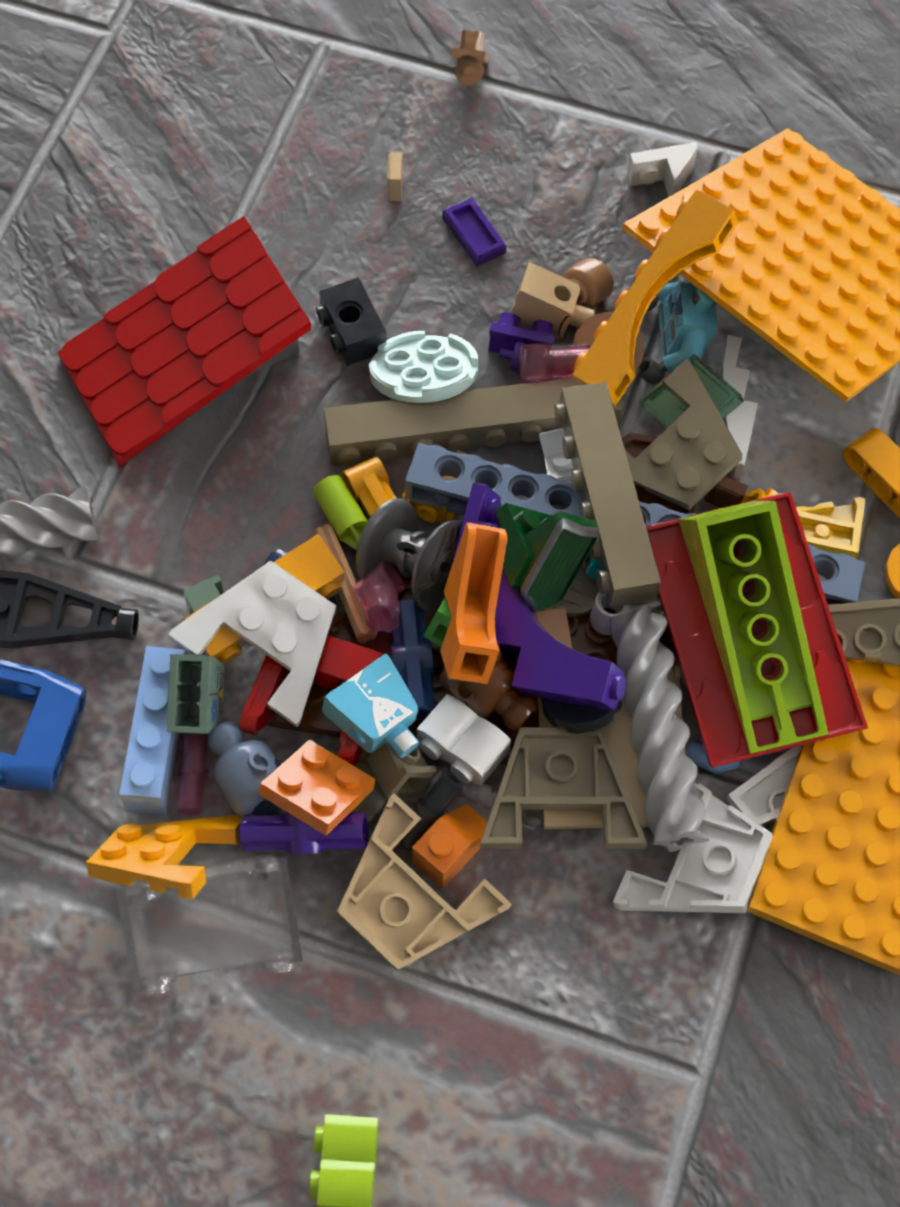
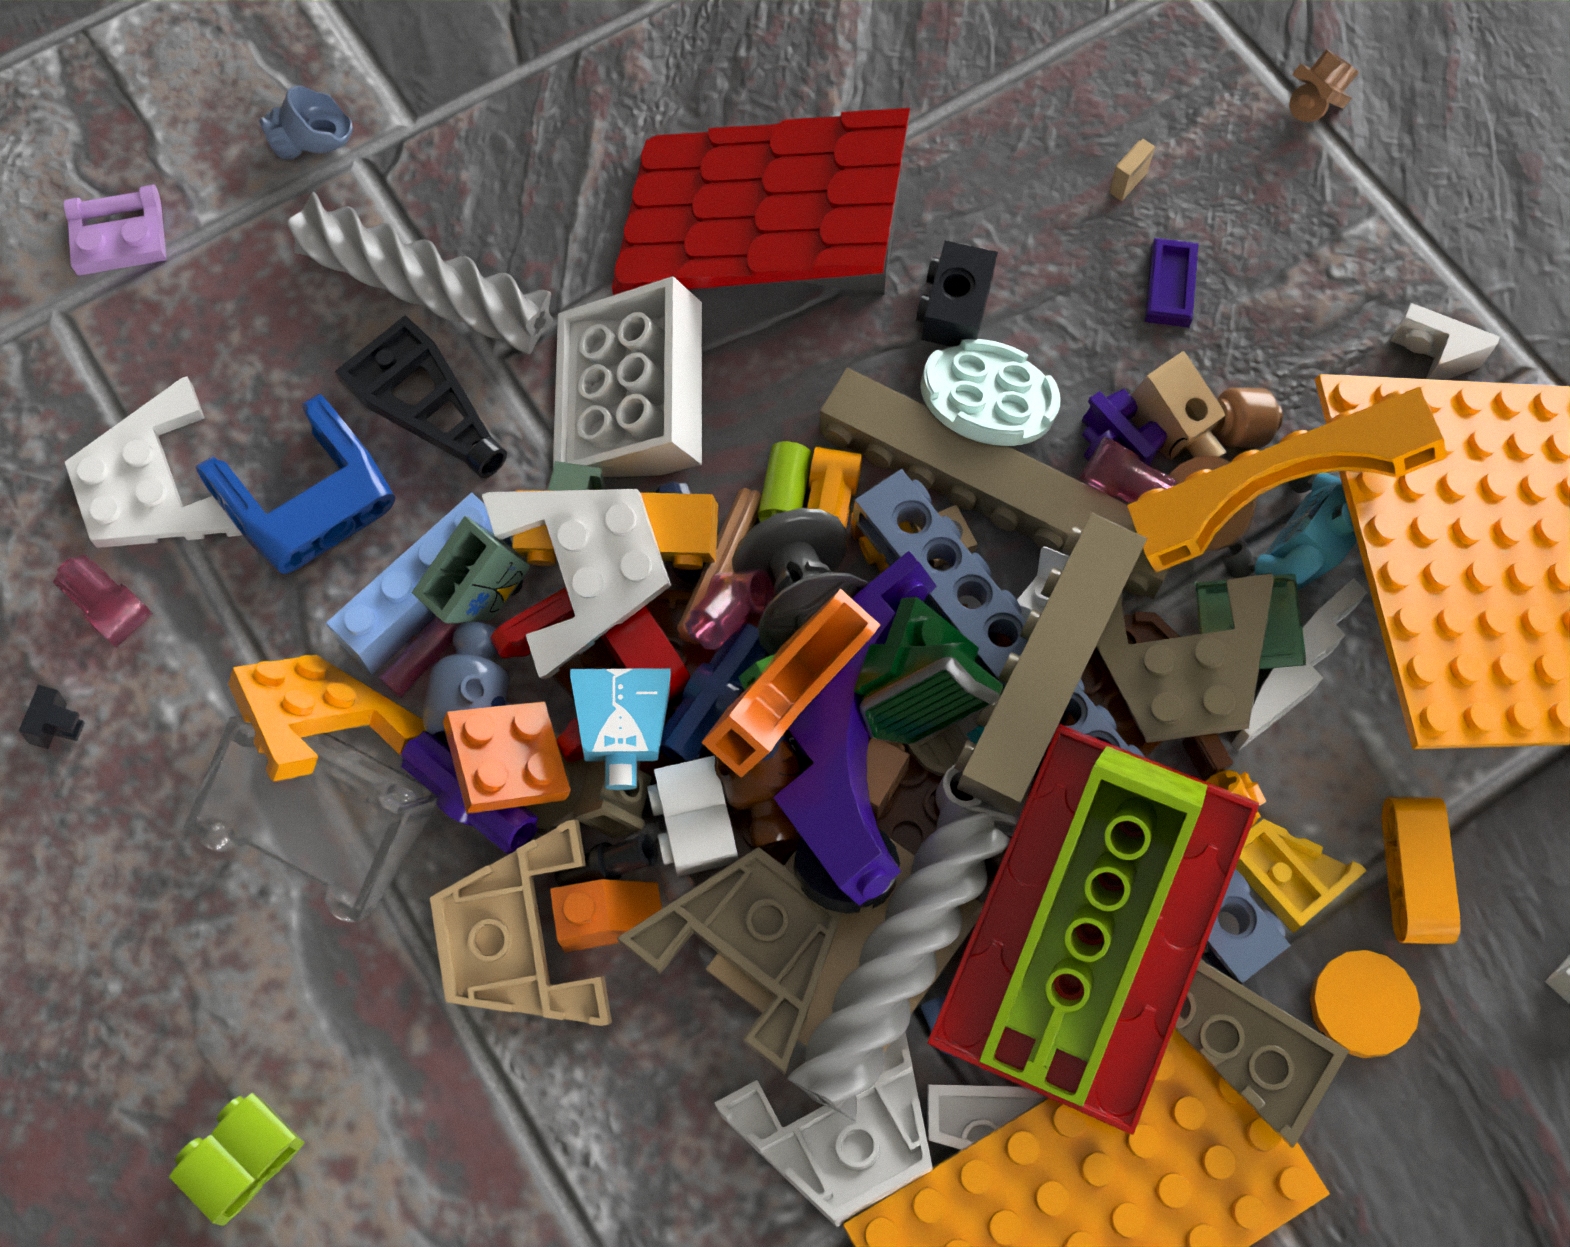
camera: 40 degrees right, 5 degrees up
(183, 513) = (631, 382): none -> white slope

